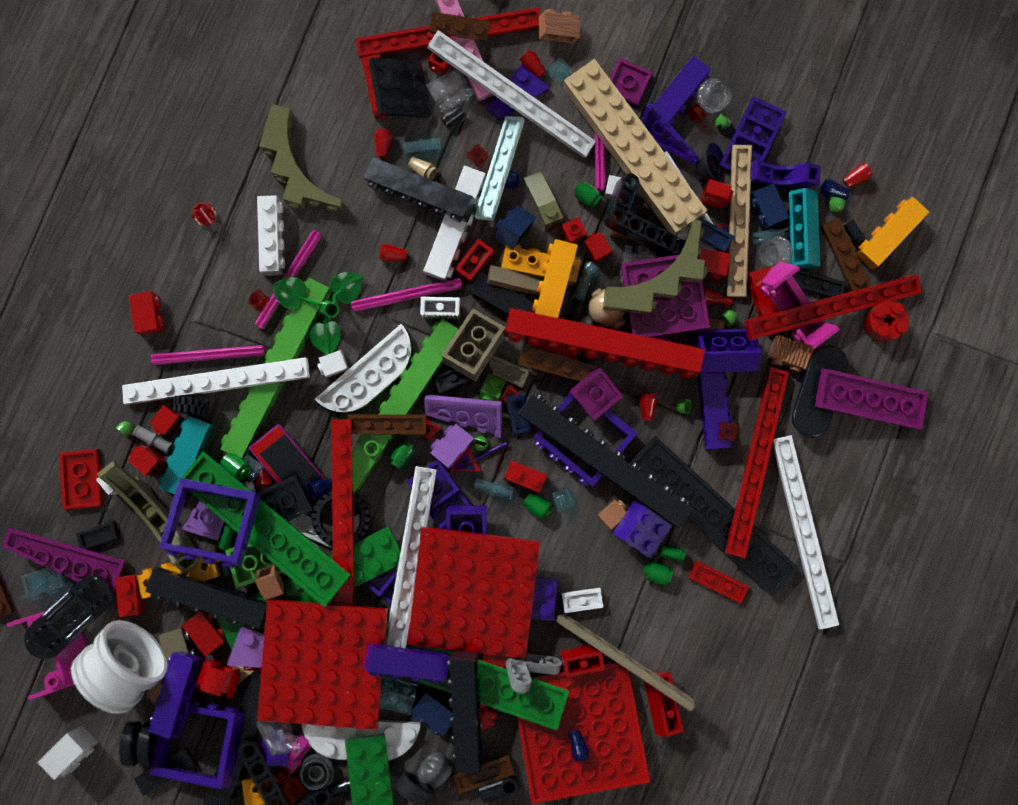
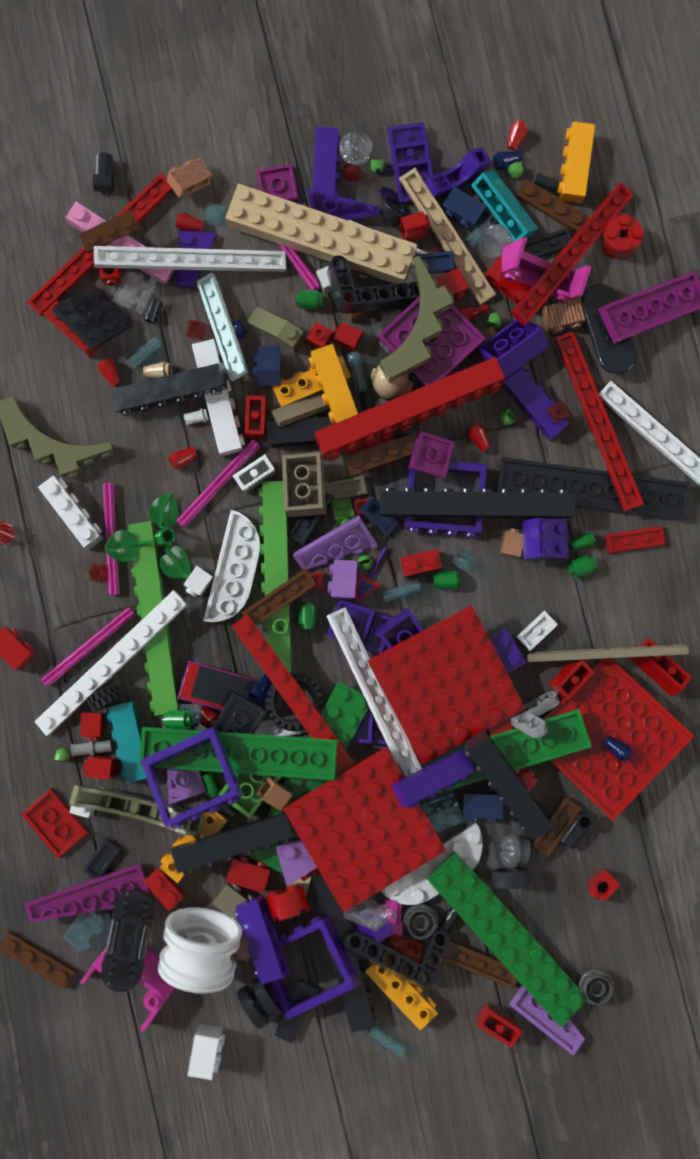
camera: 35 degrees left, 0 degrees up
(426, 227) = (196, 417): none -> white pin

